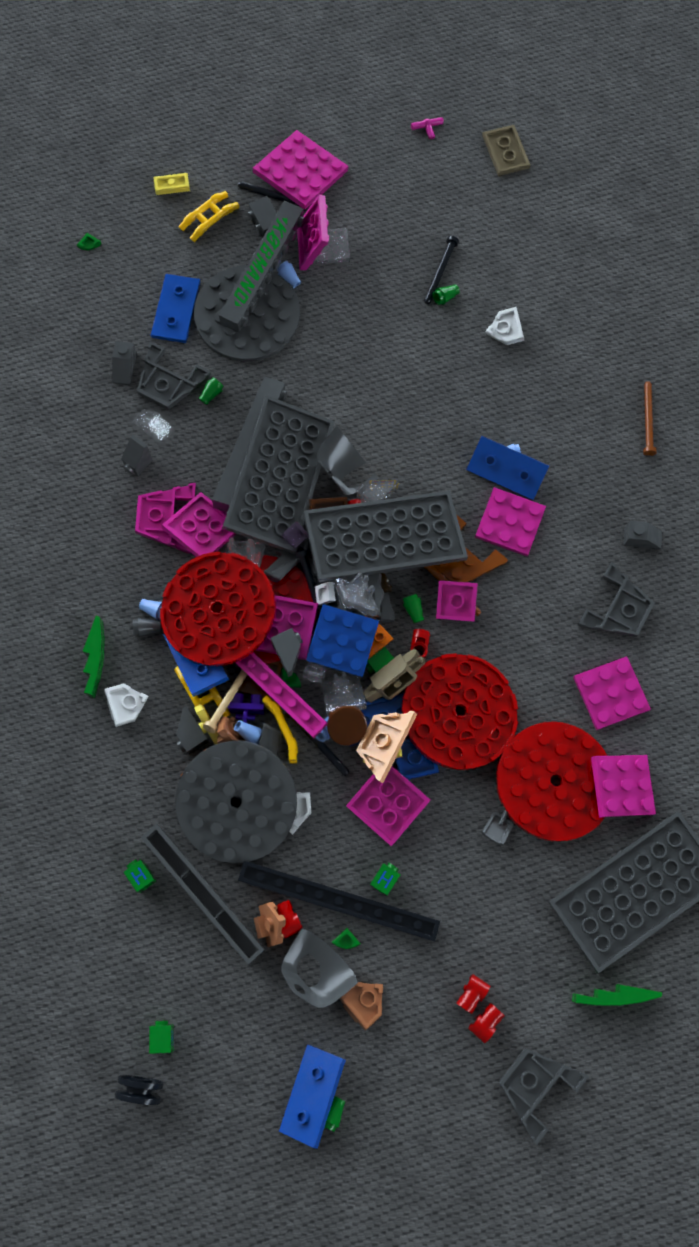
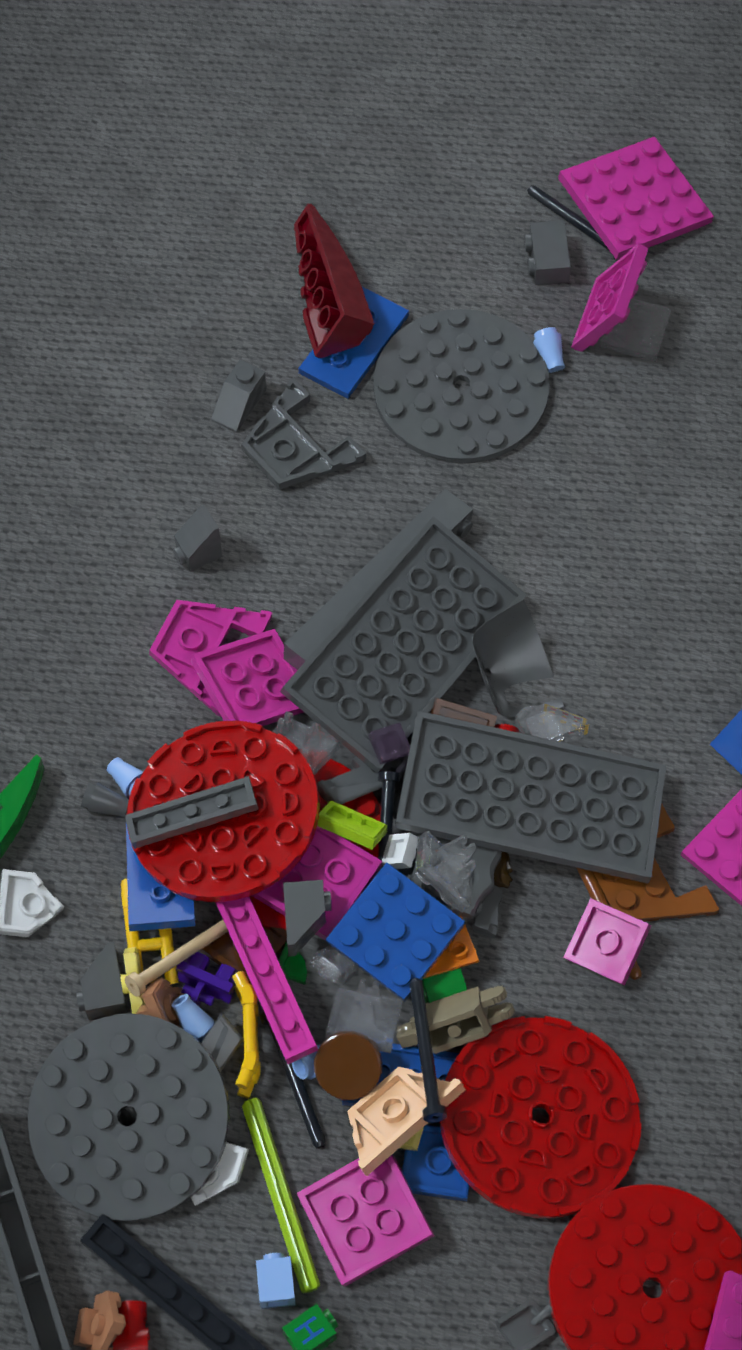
camera: 25 degrees right, 10 degrees down
(88, 242) = (263, 201): green tile -> none
(152, 424) = (244, 503): clear slope -> none
(156, 288) = (336, 305): none -> dark red wedge
(171, 183) = (425, 155): light yellow plate -> none
(201, 617) = (191, 812): none -> dark grey plate
(207, 223) = (453, 230): yellow piece -> none
(211, 390) = (355, 482): green cone -> none
(261, 266) = (509, 323): dark grey brick -> none
(293, 589) = (351, 825): none -> lime plate
(337, 810) = (281, 1195): none -> lime axle
(354, 858) = (275, 1281): none -> light blue brick
(406, 733) = (434, 1111): none -> black bar
(414, 608) = (534, 927): green cone -> none
(420, 641) = (522, 984): red piece -> none

